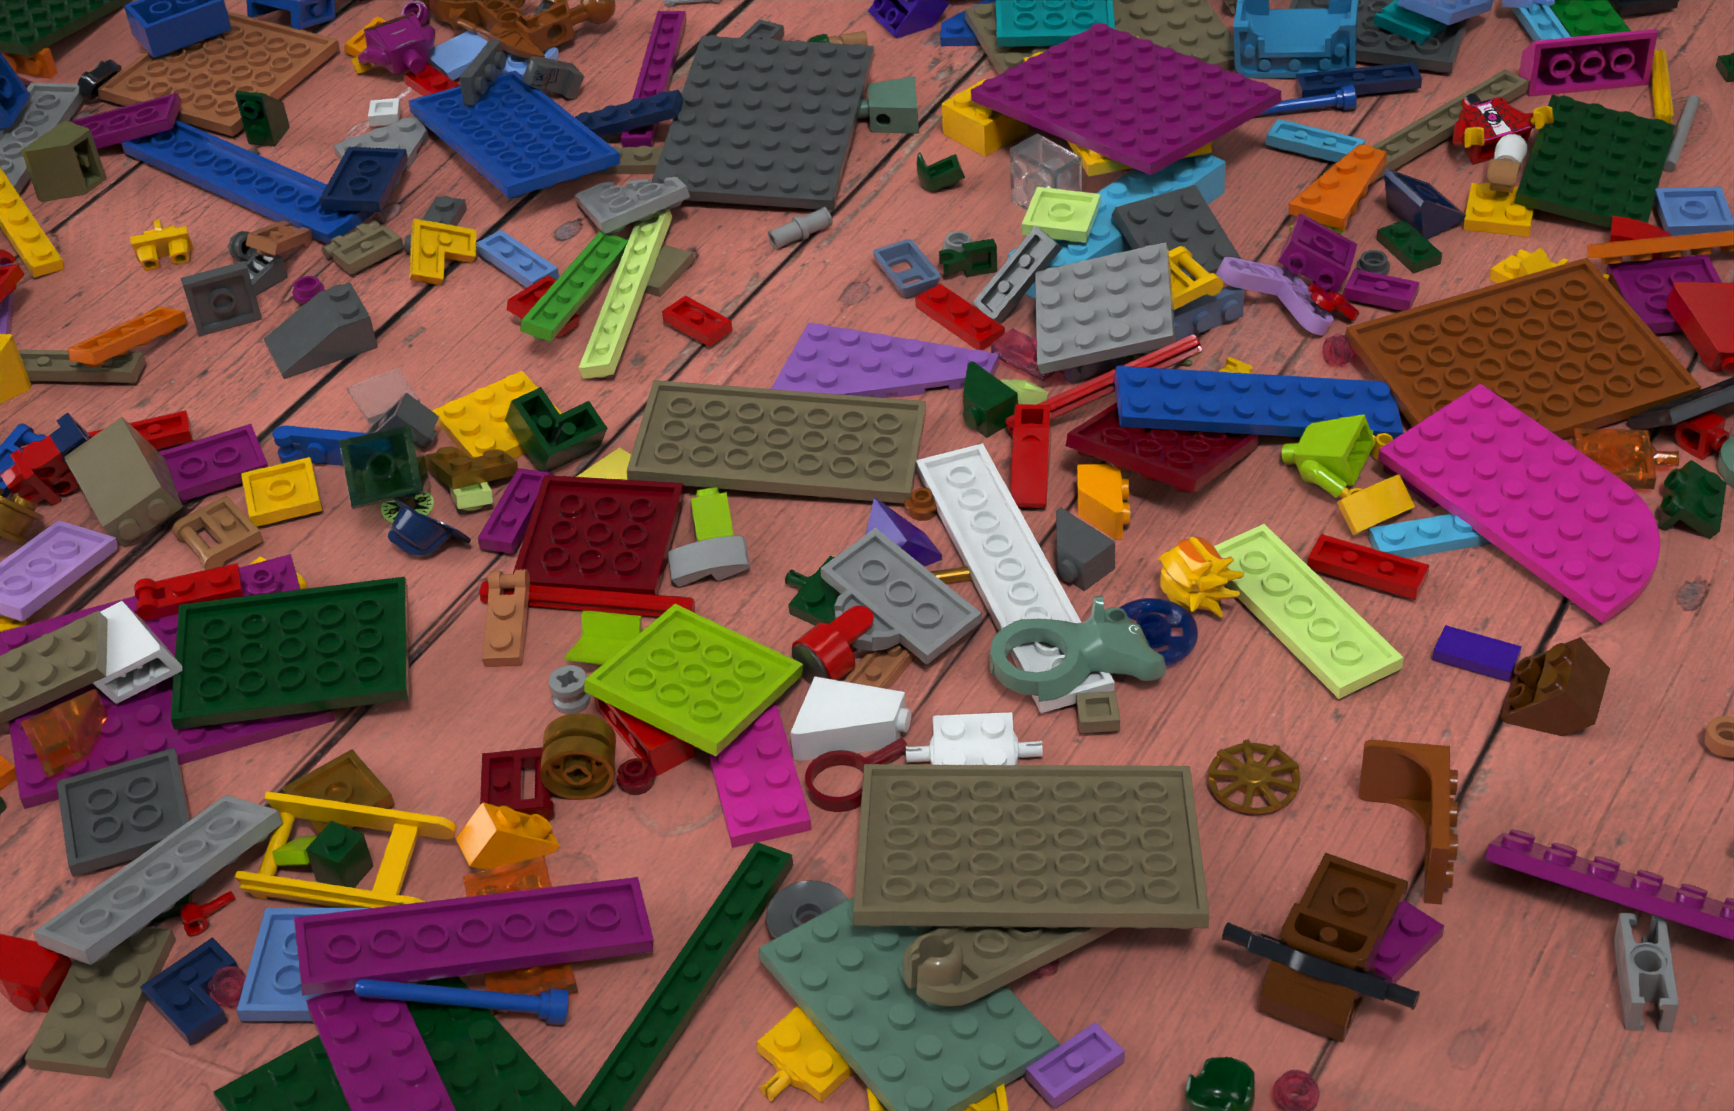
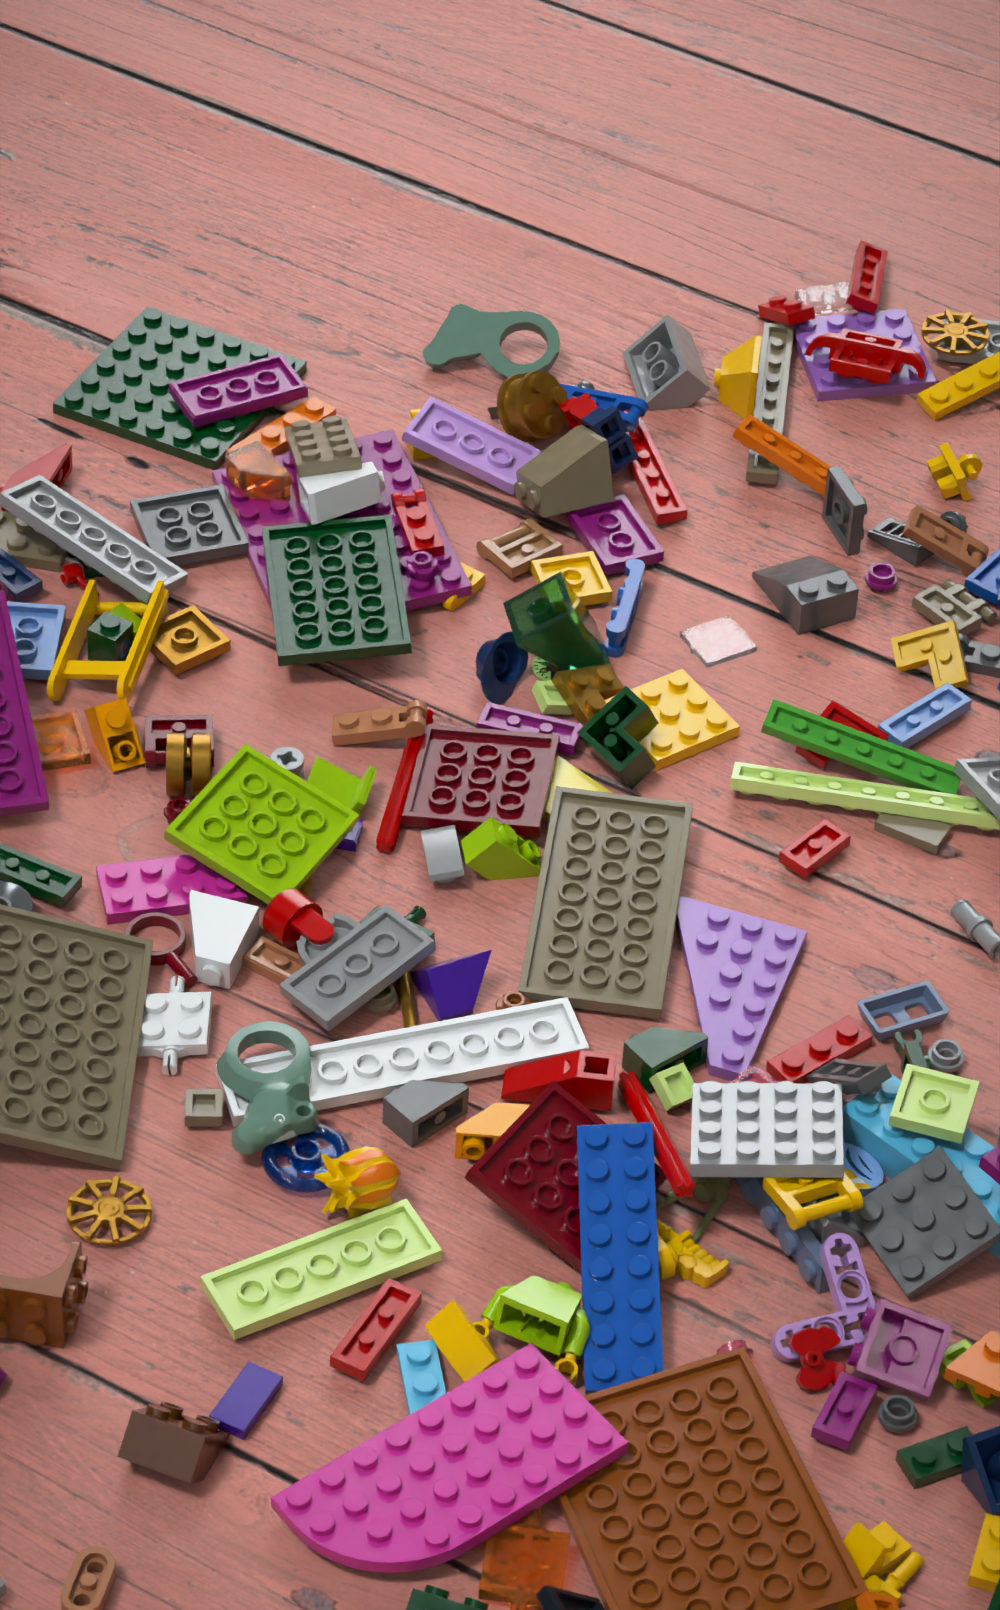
camera: 85 degrees right, 0 degrees up
(408, 412) = (648, 648): dark grey slope -> none

